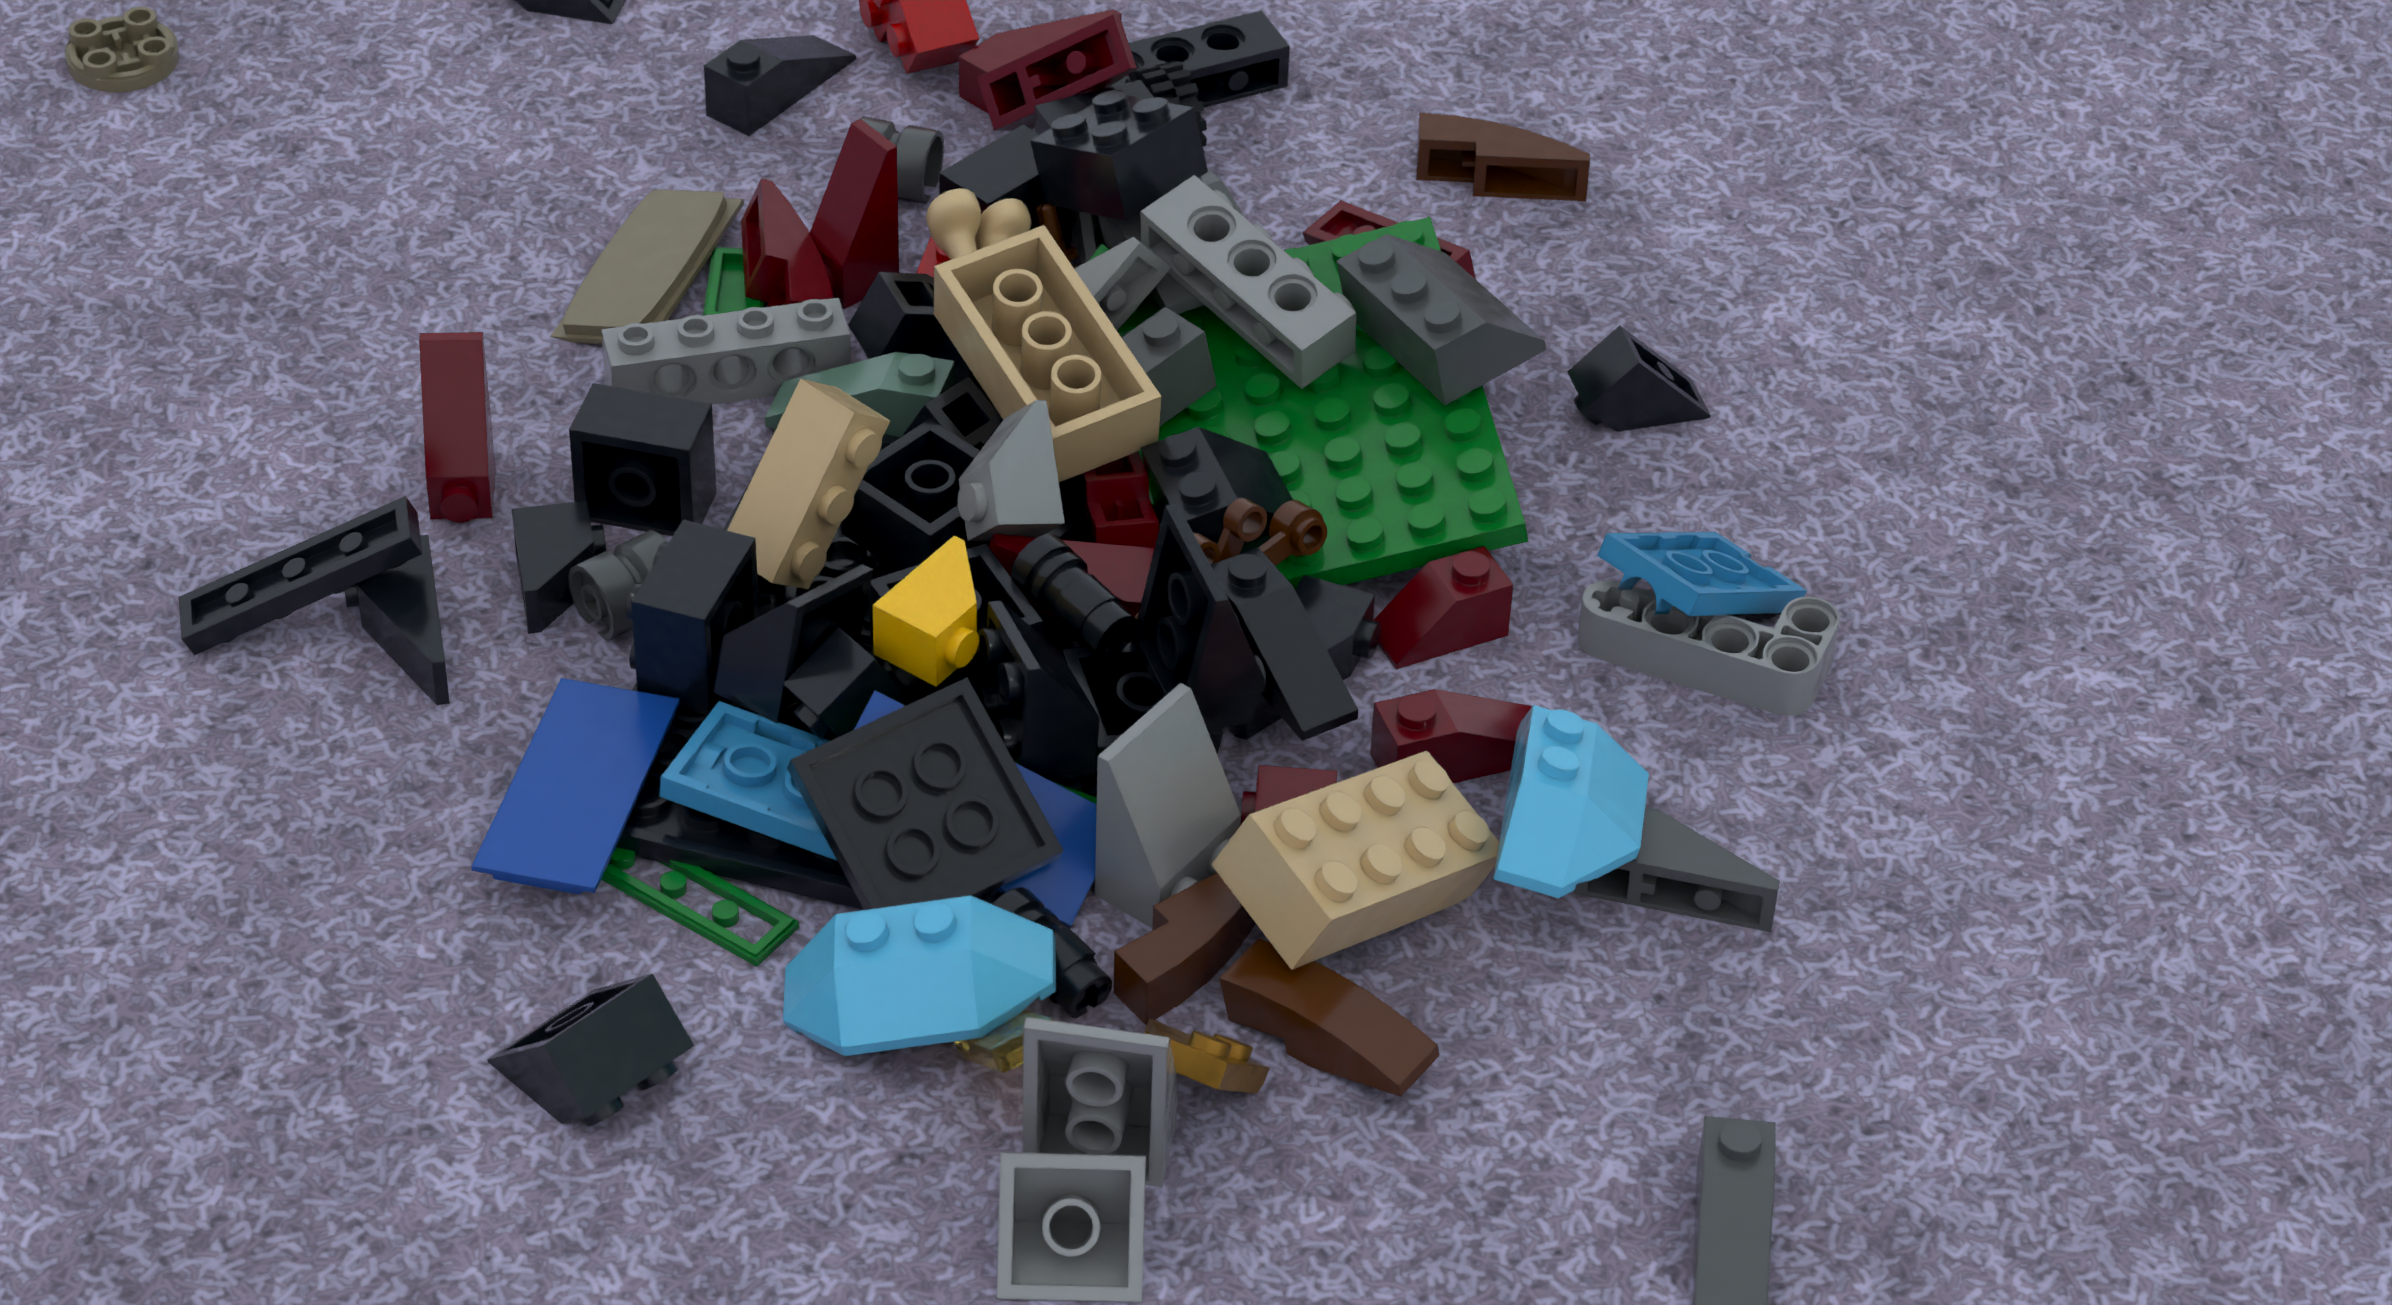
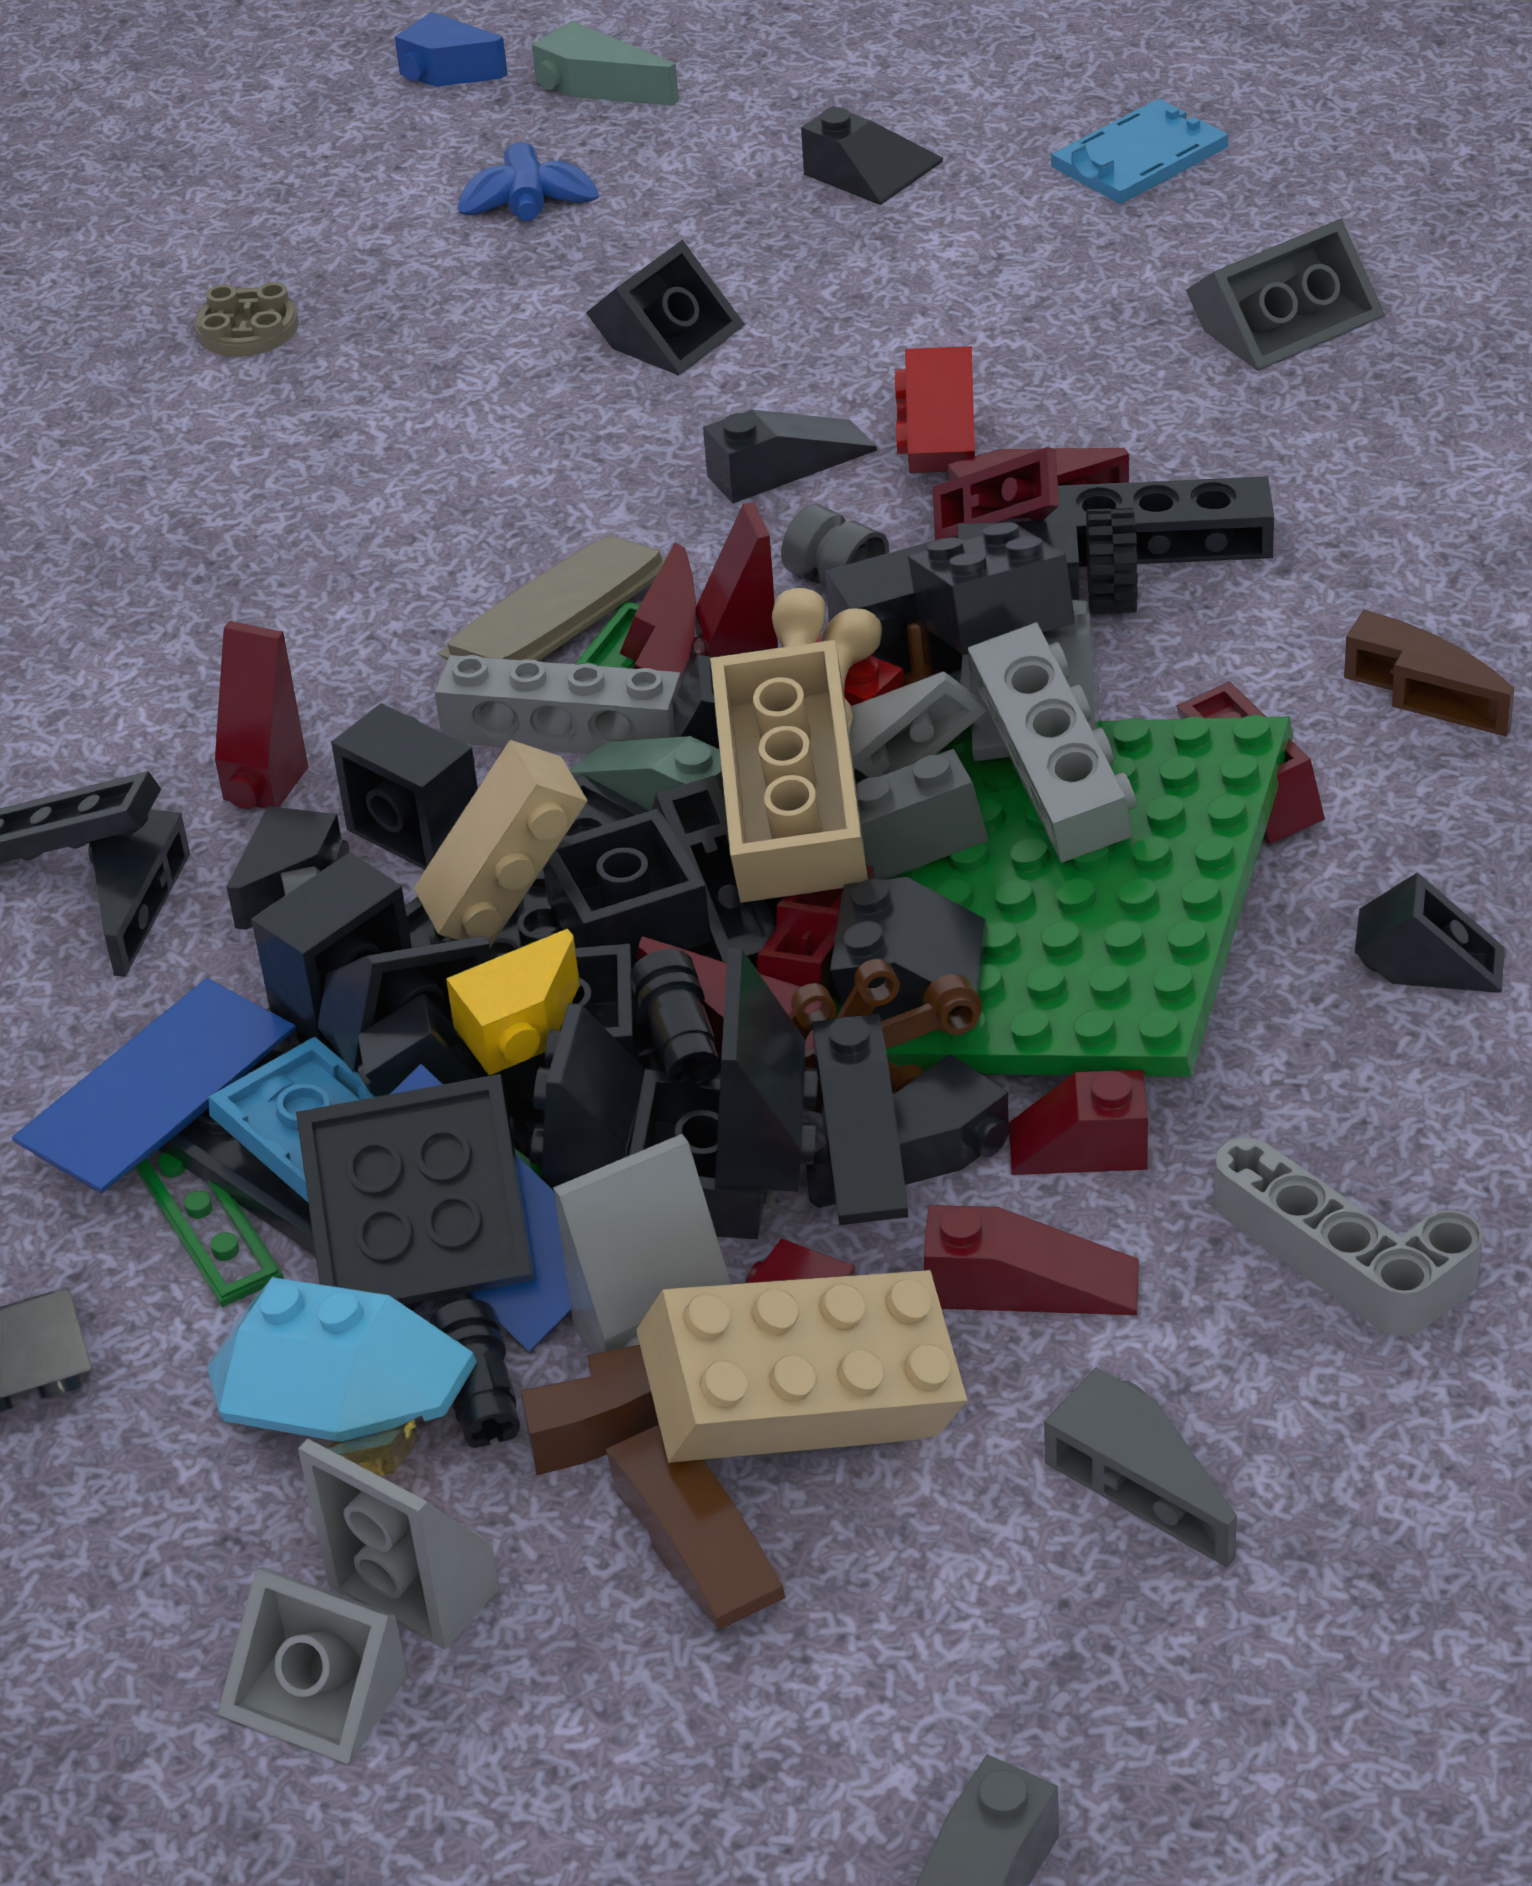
camera: 30 degrees right, 0 degrees up
(1013, 480) = (680, 889): light grey slope -> none
(1212, 1059) = (540, 1531): pearl gold wing -> none
(1433, 316) = (1216, 816): dark grey slope -> none
(1568, 805) = (1047, 1369): medium azure wedge -> none
(1698, 573) = (1358, 1156): dark azure piece -> none

